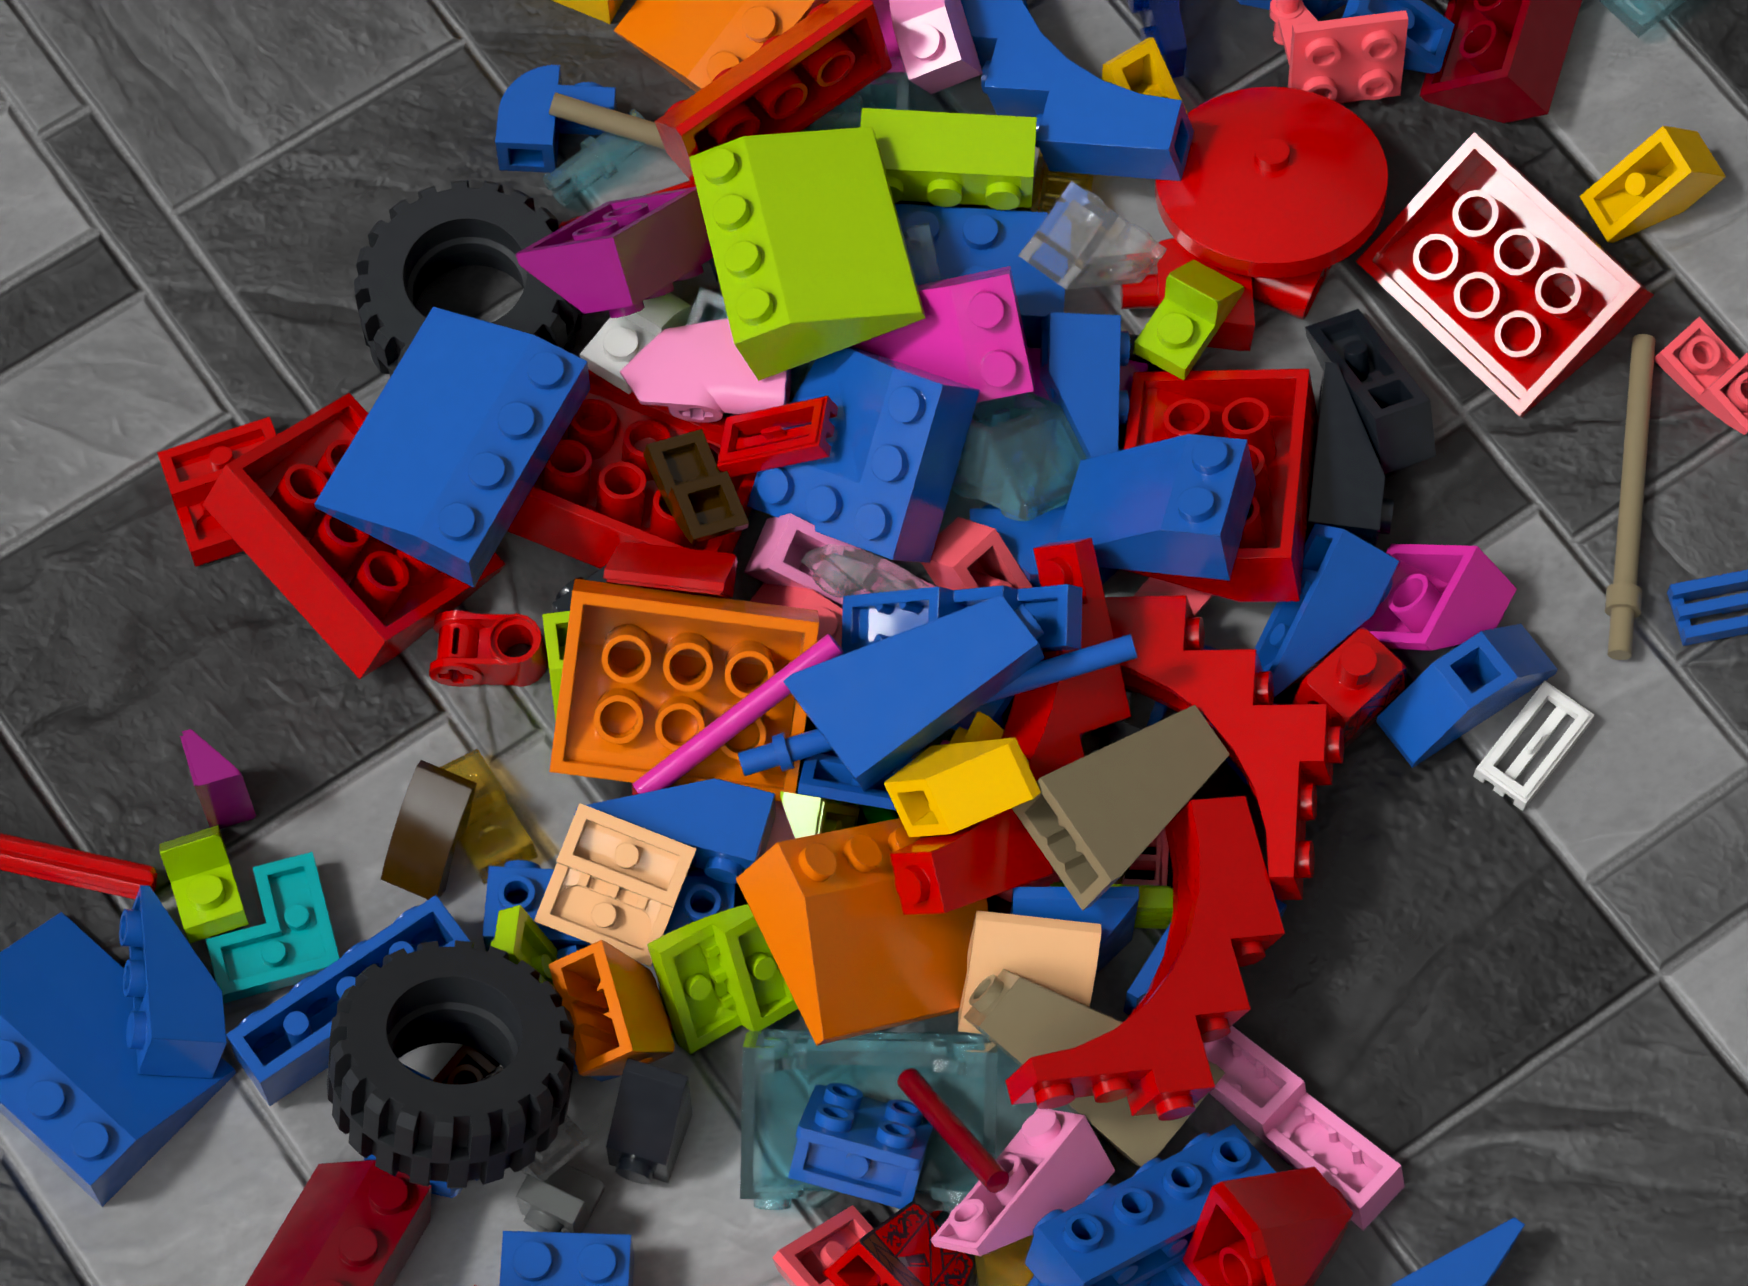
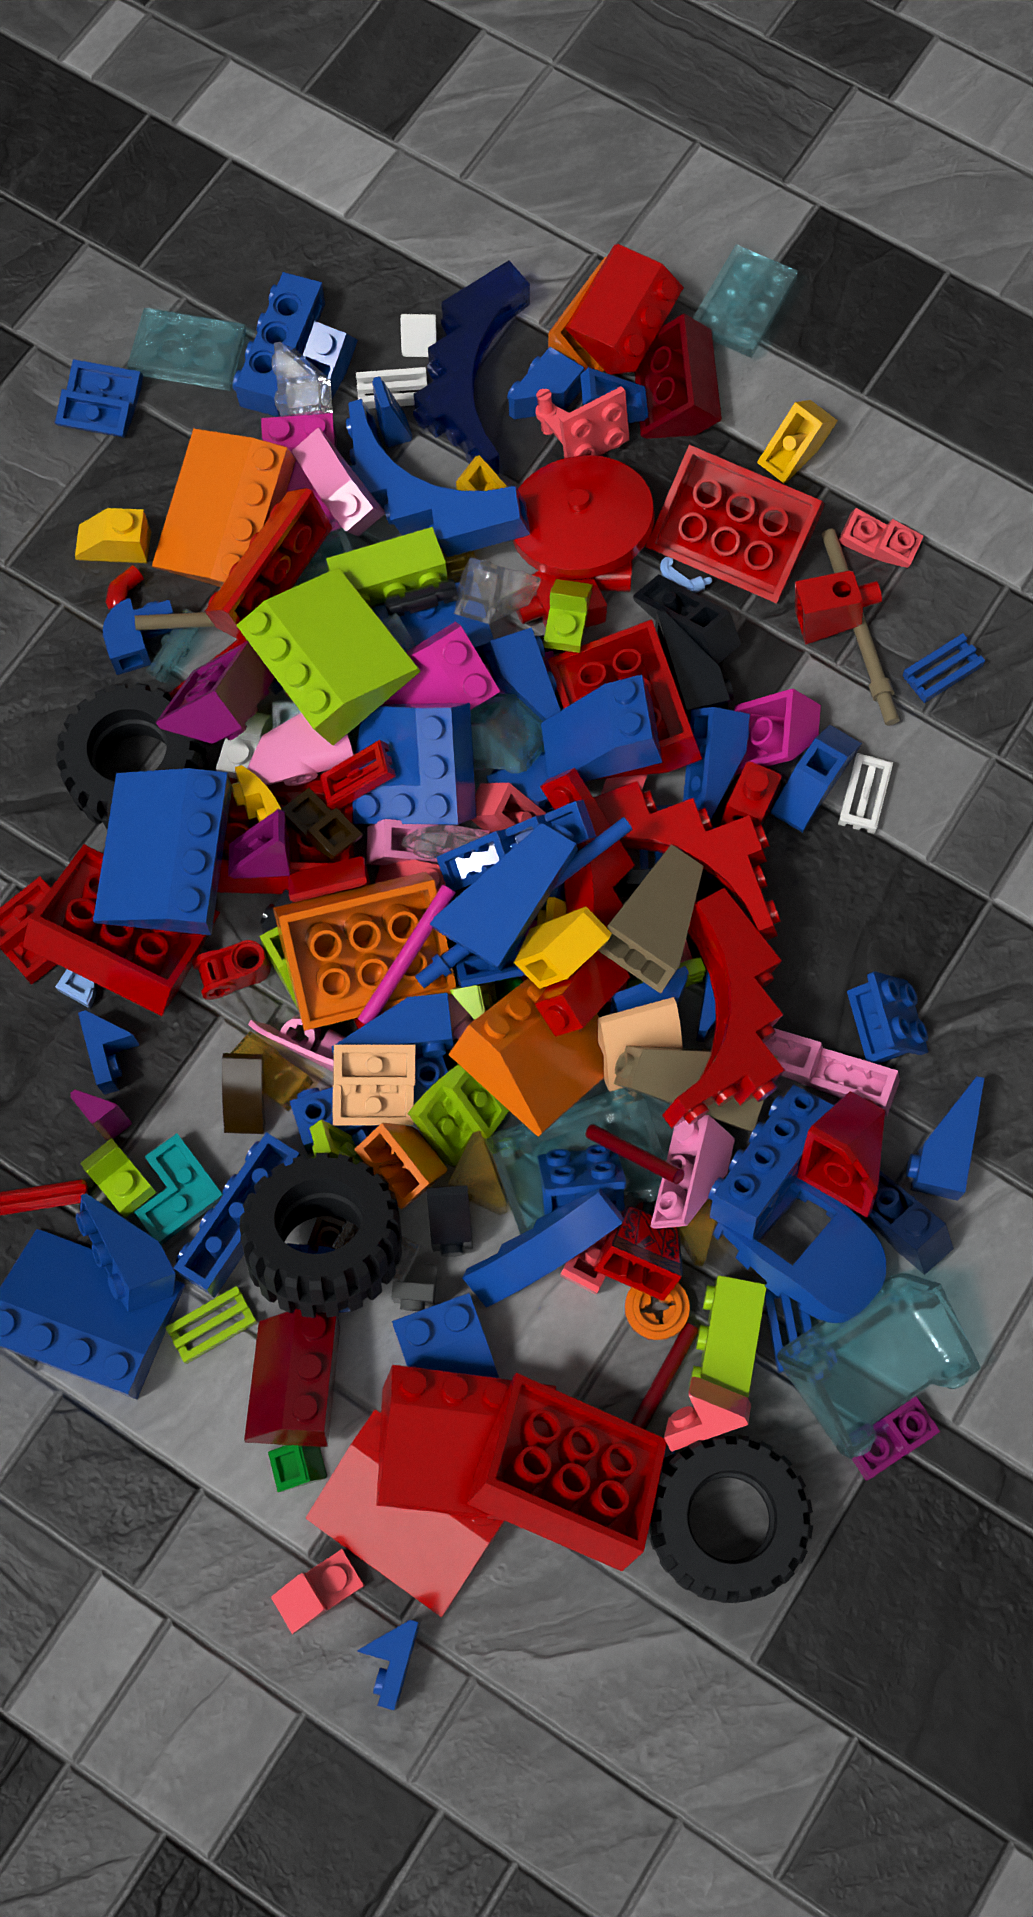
camera: 20 degrees left, 5 degrees up
(245, 1119) = (203, 1311): none -> lime tile
(258, 595) = (77, 988): none -> light blue tile
(259, 685) = (102, 1040): none -> blue slope
(553, 805) = (313, 1048): none -> bright pink panel
(559, 43) = (122, 585): none -> red arm
(595, 492) = (261, 850): none -> magenta slope
(620, 426) = (253, 794): none -> yellow slope
(716, 1079) = (479, 1174): none -> clear yellow slope
(764, 1212) = (544, 1248): none -> blue slope
(979, 216) = (422, 598): none -> black axle
(1400, 344) = (694, 585): none -> light blue piece
(1422, 1085) = (887, 1018): none -> blue bracket
(1595, 445) = (832, 604): none -> red torso

